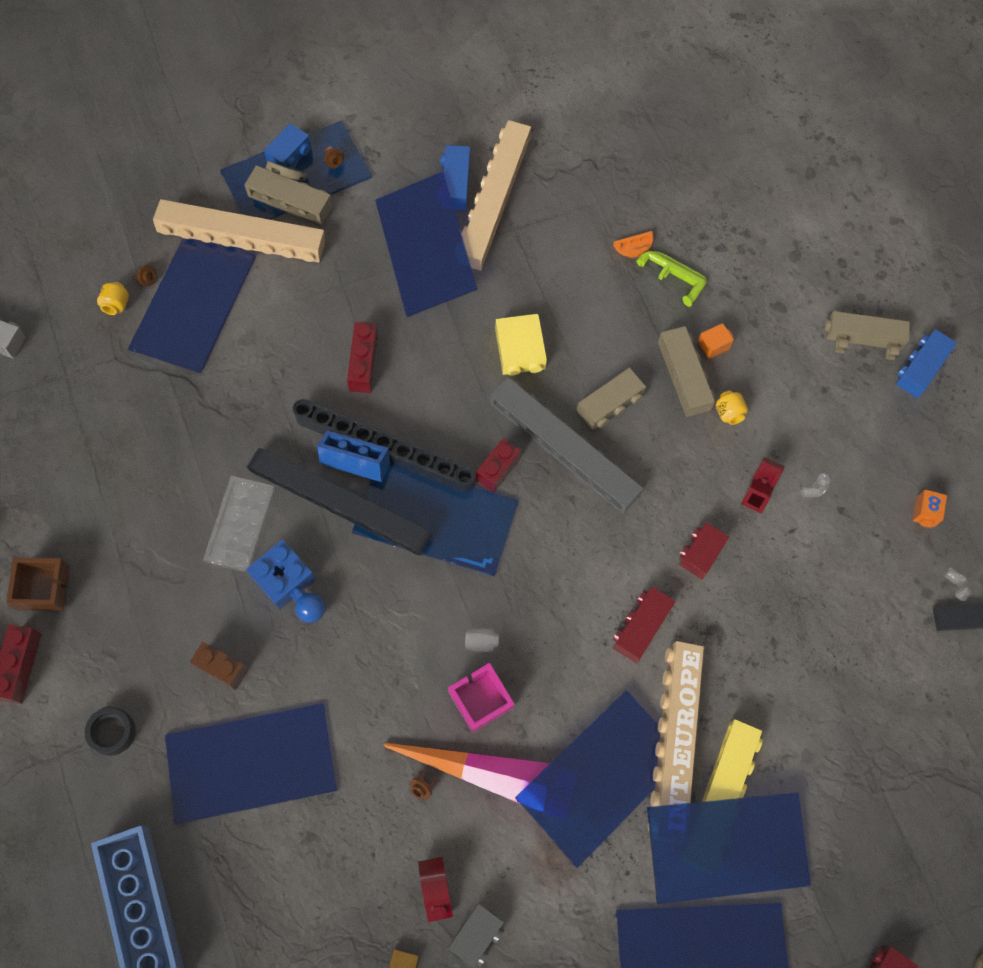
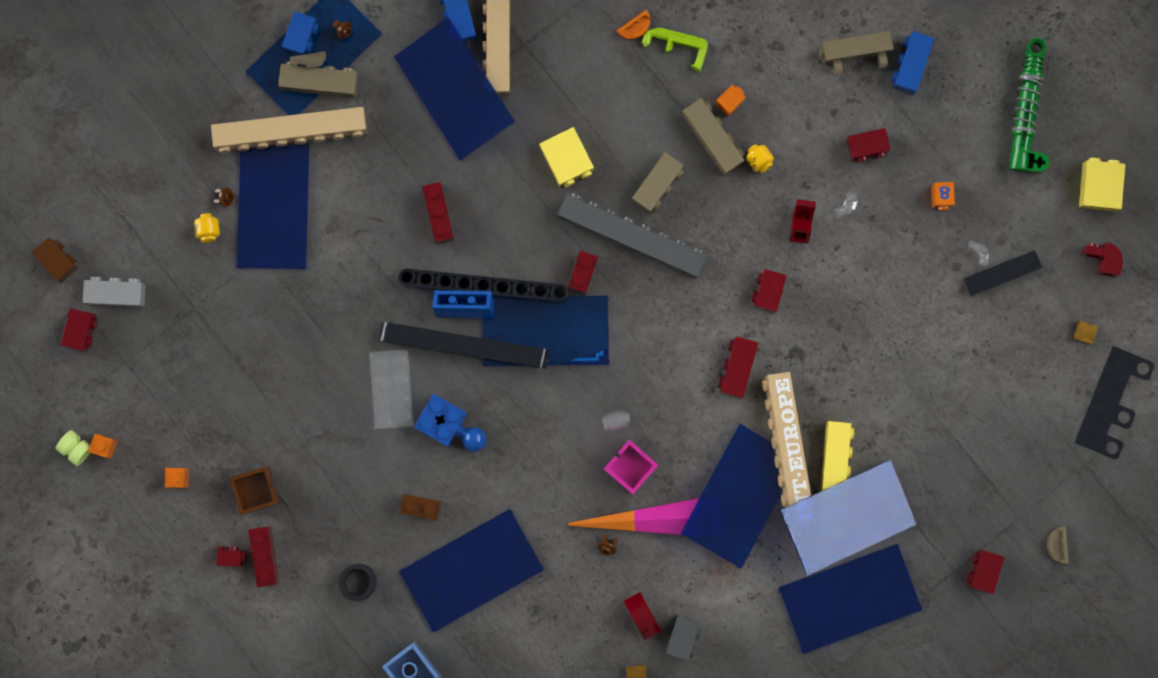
camera: 15 degrees left, 15 degrees up
(856, 430) = (868, 144): none -> dark red brick

